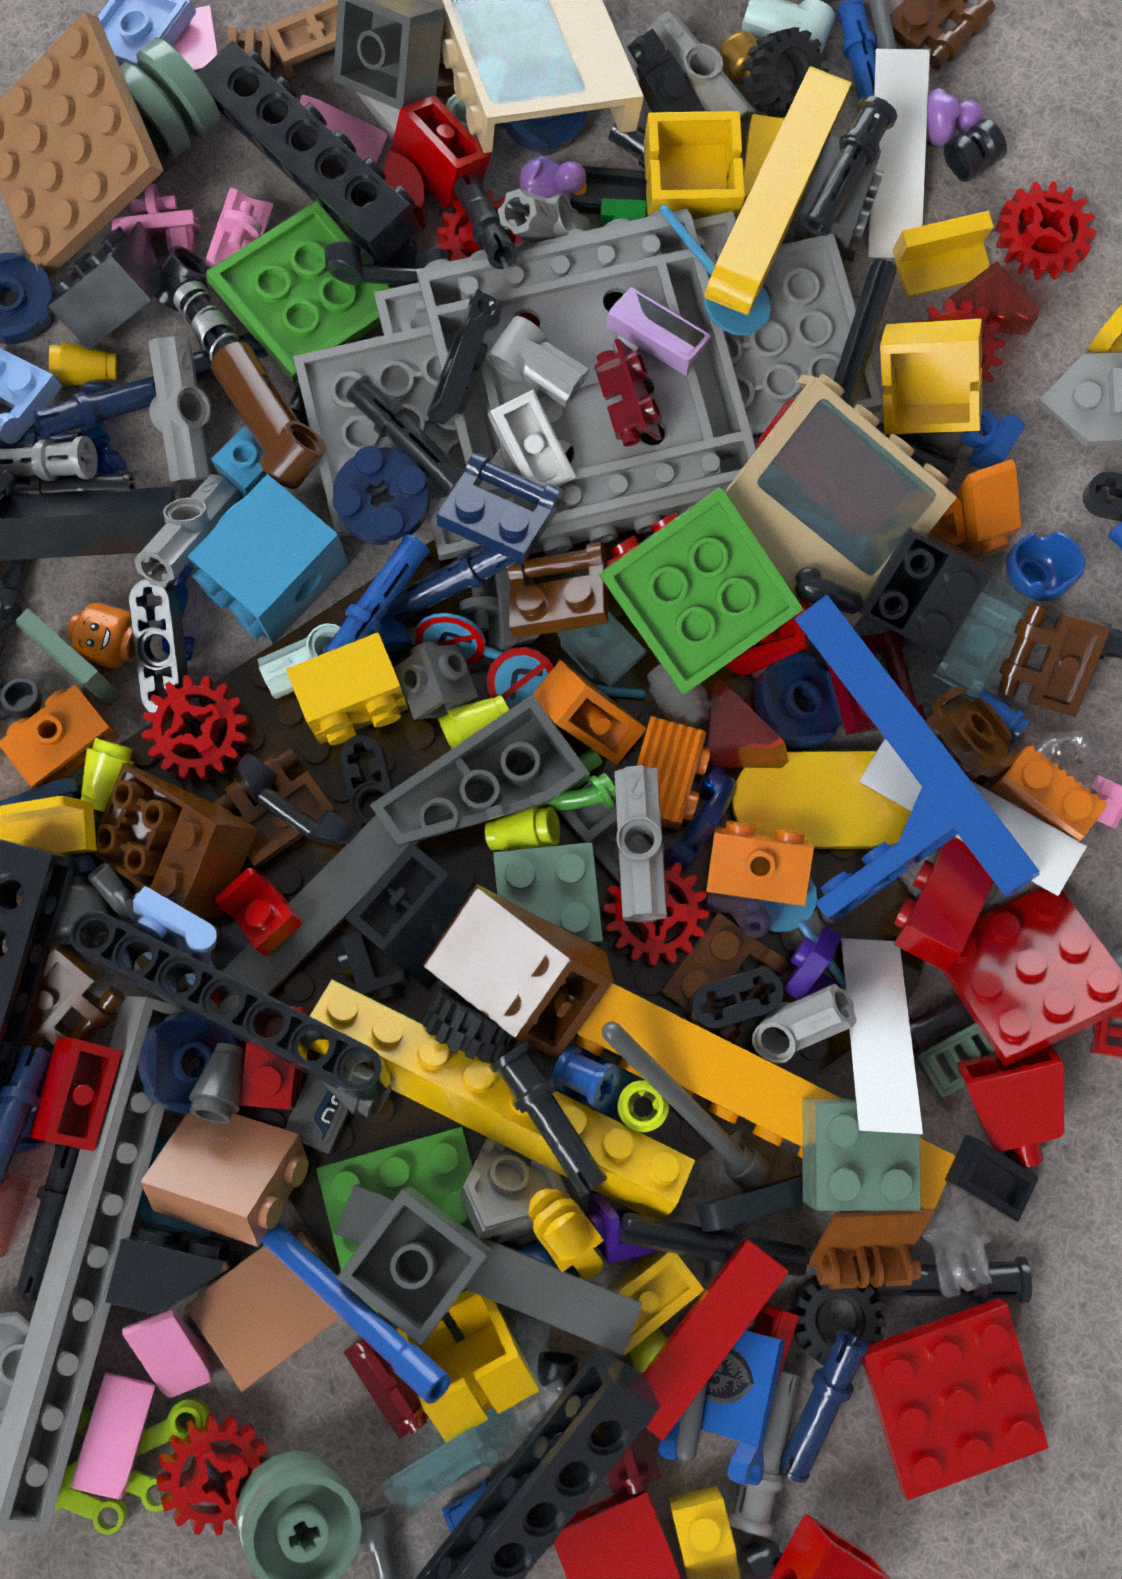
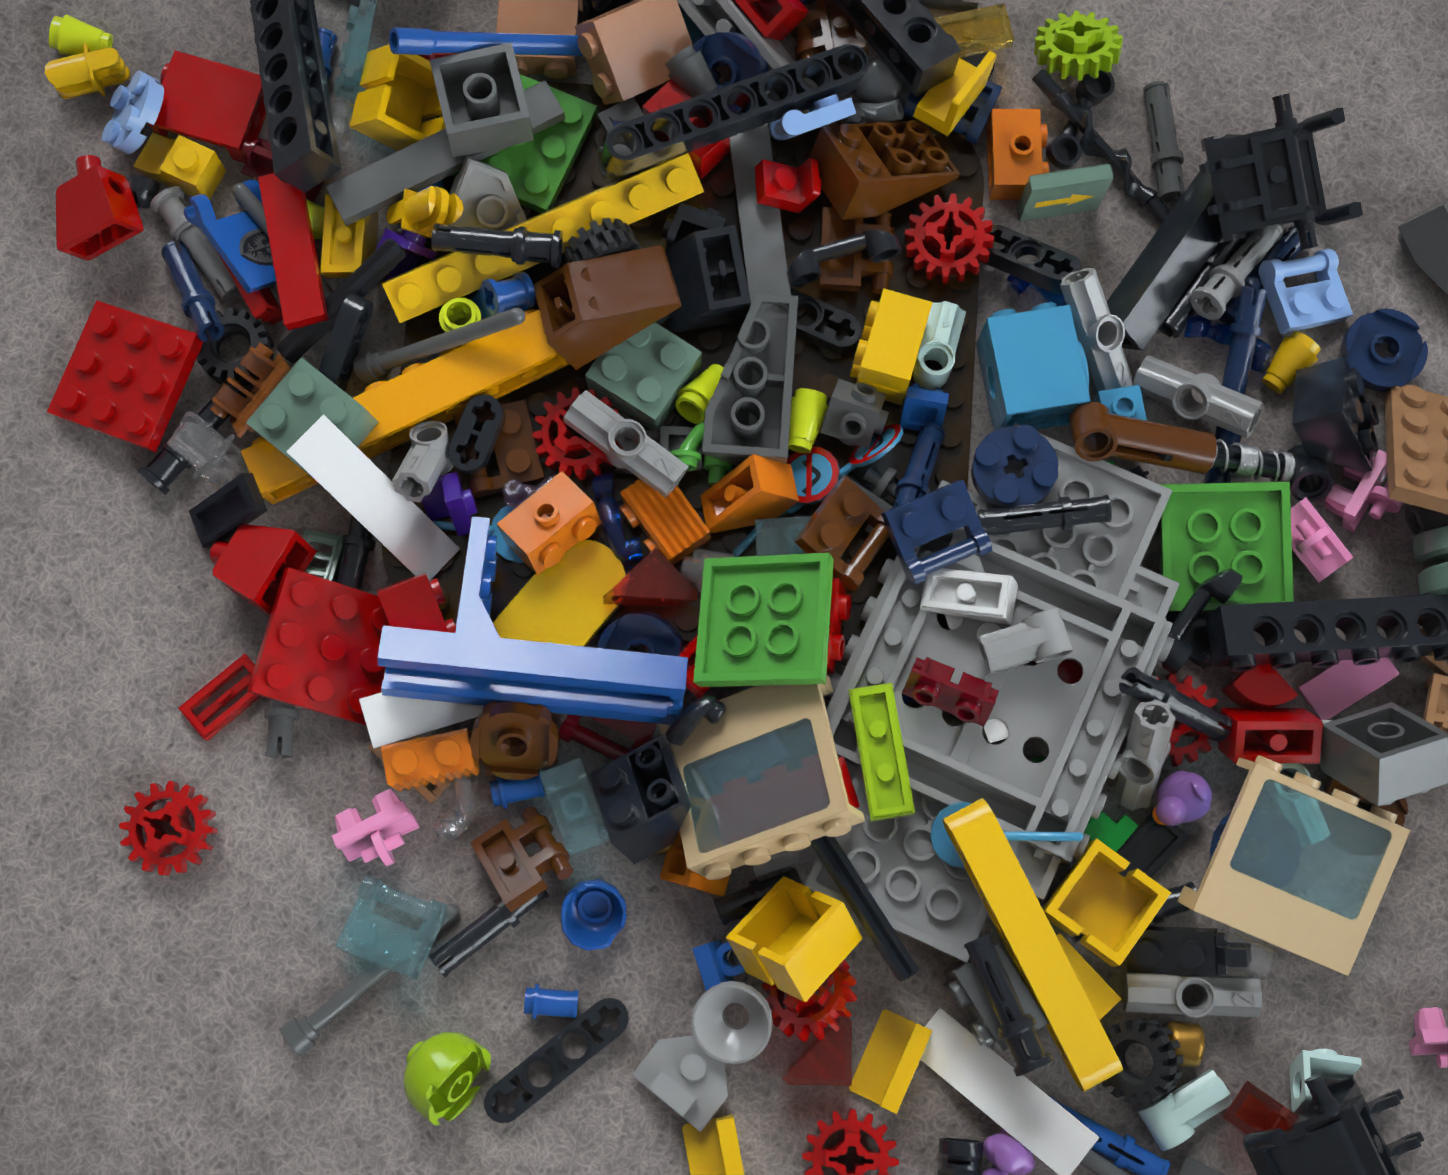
camera: 130 degrees right, 0 degrees up
(102, 770) = (972, 165): neon yellow cone -> none
(103, 635) = (1067, 229): orange head -> none
(390, 581) = (939, 409): blue pin -> none
(464, 356) = (1071, 595): black hinge -> none
(556, 1365) = (356, 155): black hinge -> none
(657, 330) = (986, 753): lavender slope -> none
(726, 415) = (881, 752): none -> lime tile
(990, 508) = (663, 903): orange slope -> none
(1040, 378) = (724, 1040): none -> light grey piece

